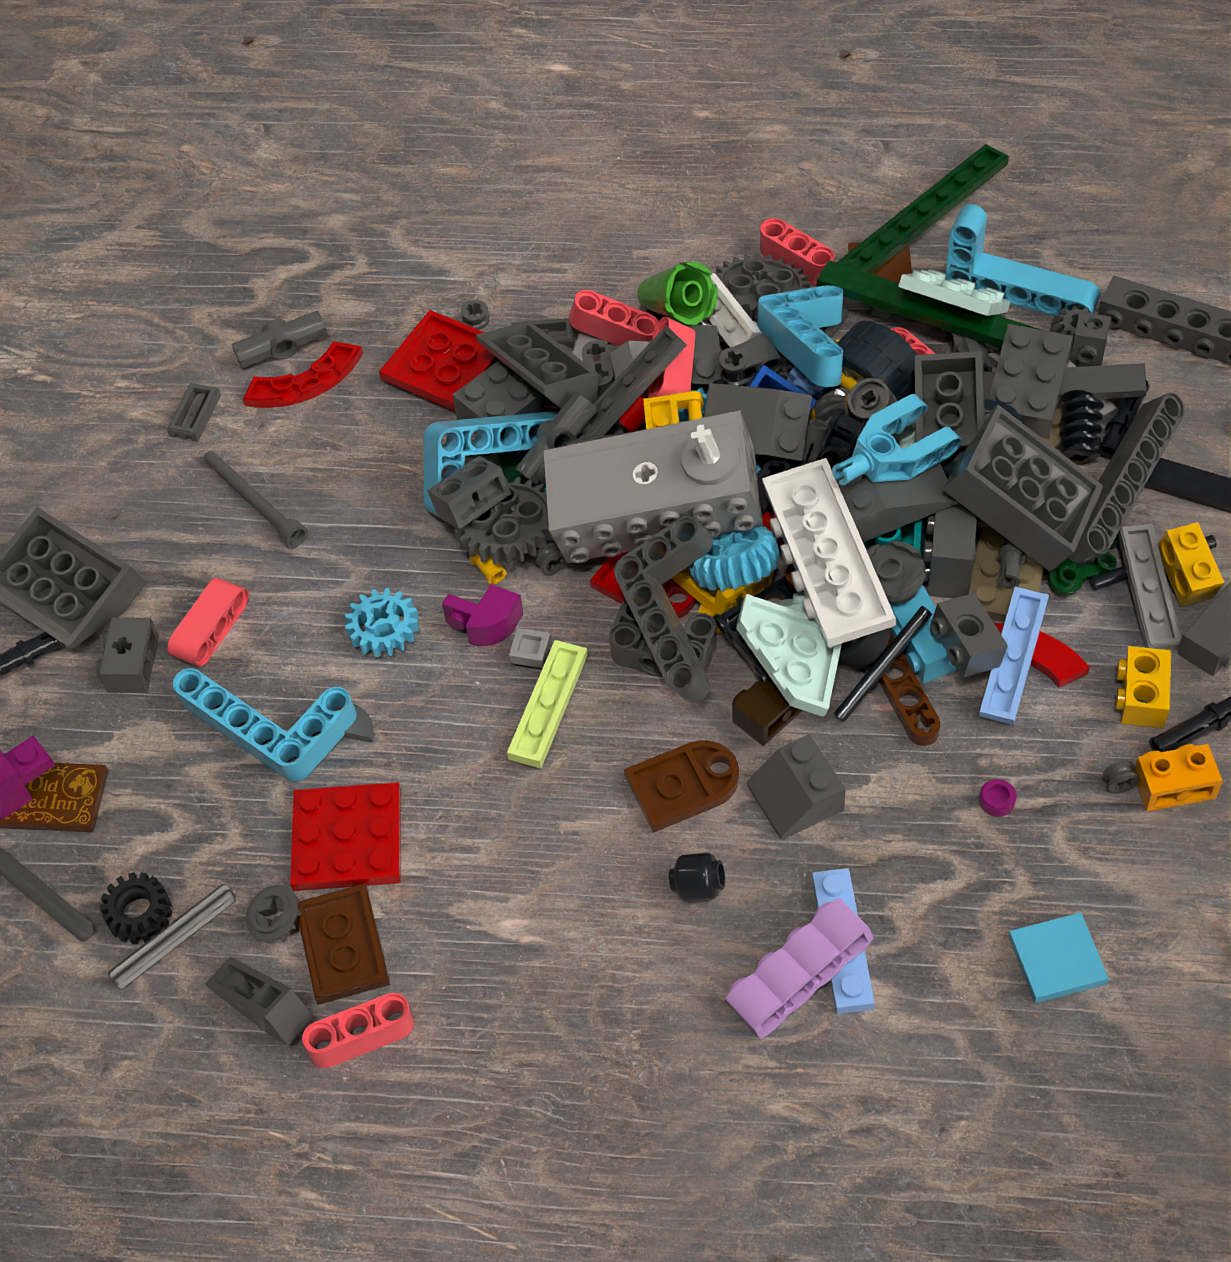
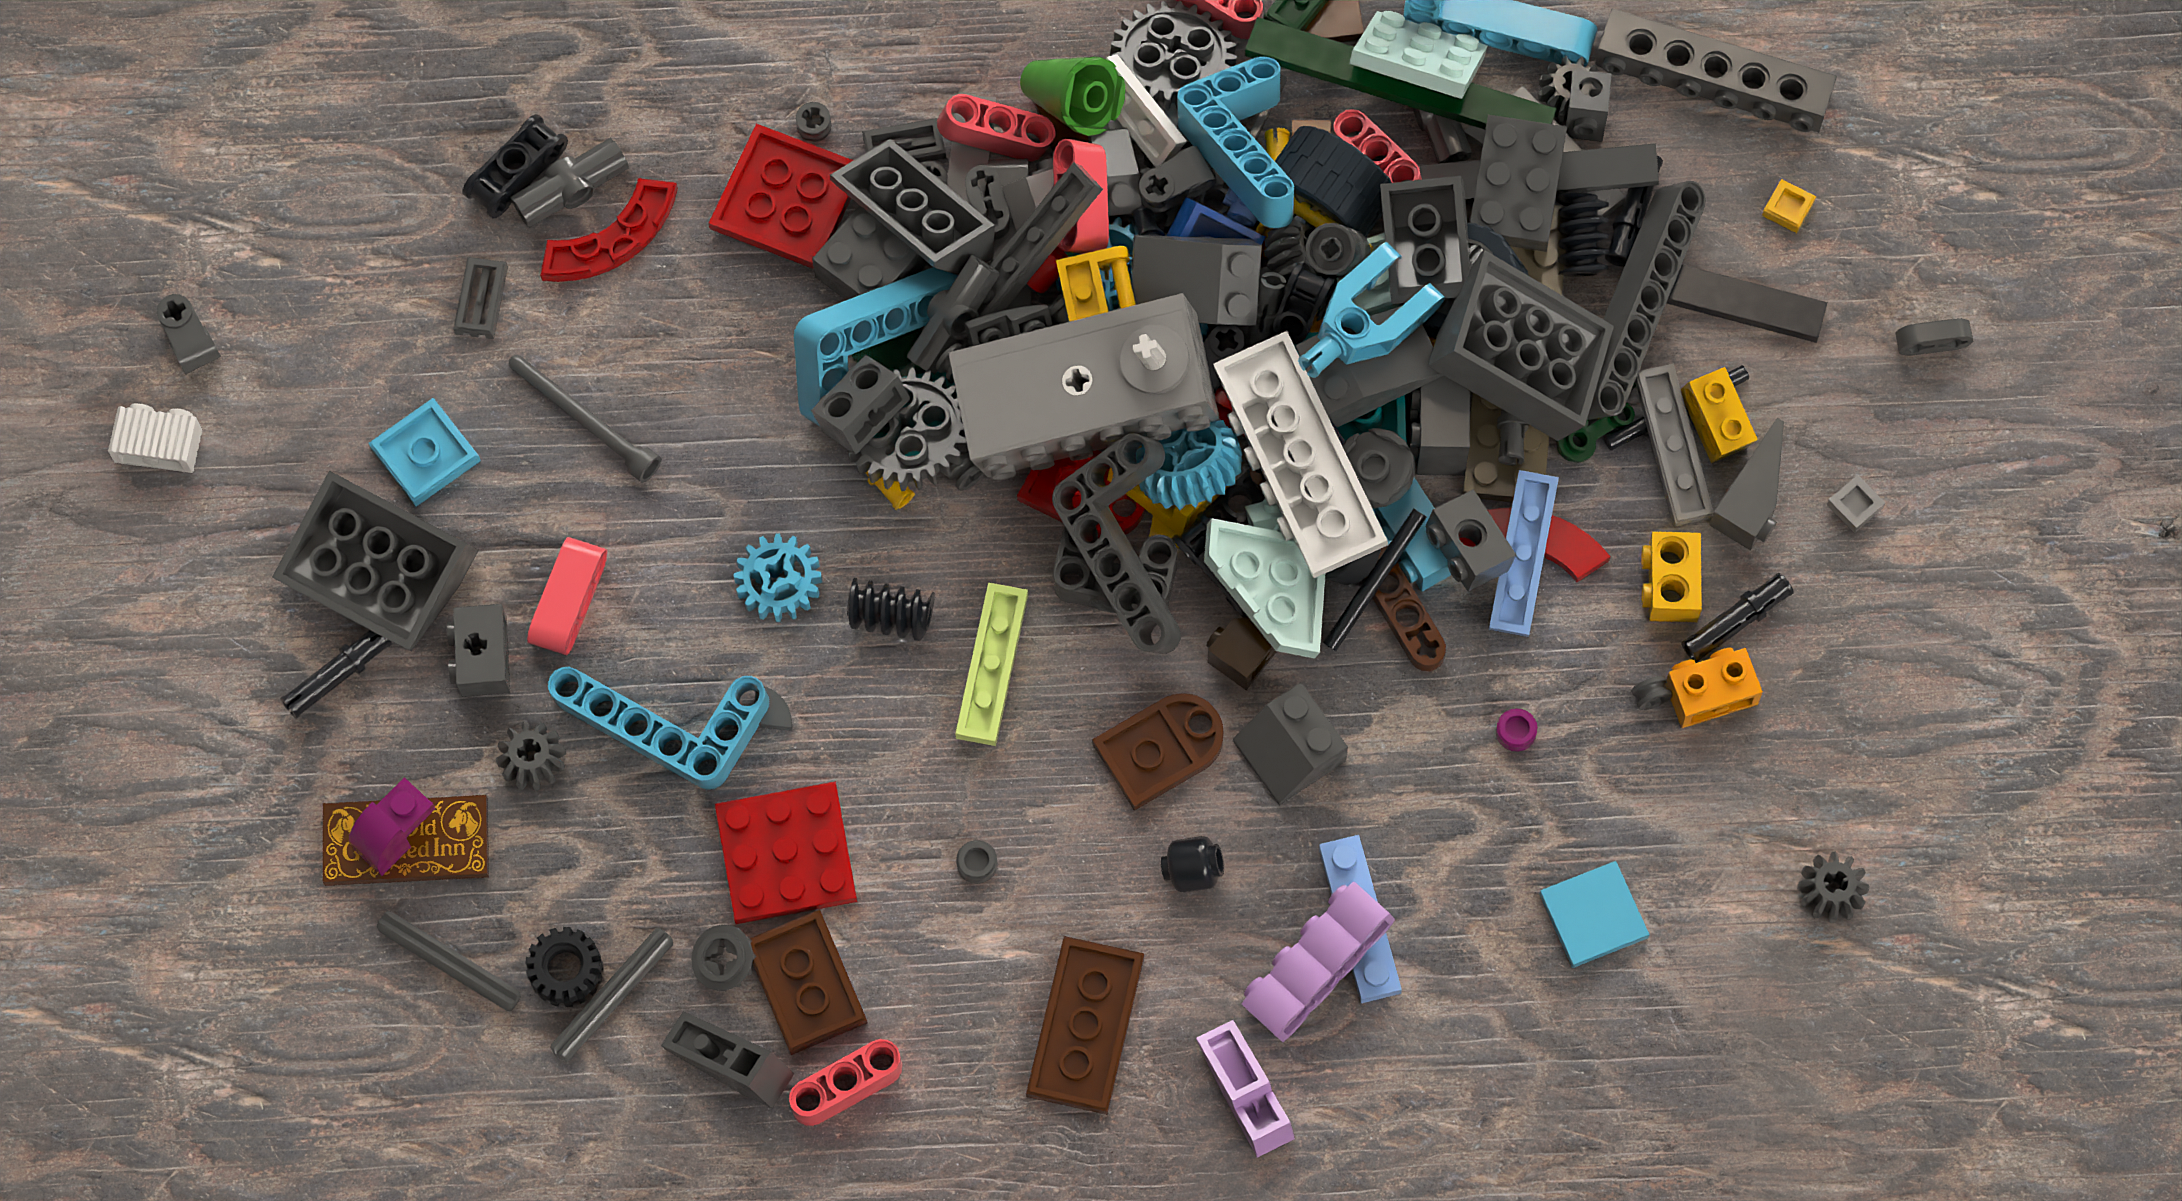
camera: 10 degrees left, 15 degrees up
(123, 513) = (424, 452): none -> medium azure tile
(149, 738) = (545, 759): none -> dark grey gear
(238, 323) = (533, 147): none -> black piece
(468, 655) = (889, 610): none -> black piece
(489, 620) = (906, 563): magenta brick -> none
(509, 859) = (976, 861): none -> dark grey tile
(530, 647) = (959, 593): light grey plate -> none
(582, 1007) = (1085, 1025): none -> reddish brown tile
(721, 1076) = (1245, 1088): none -> lavender slope

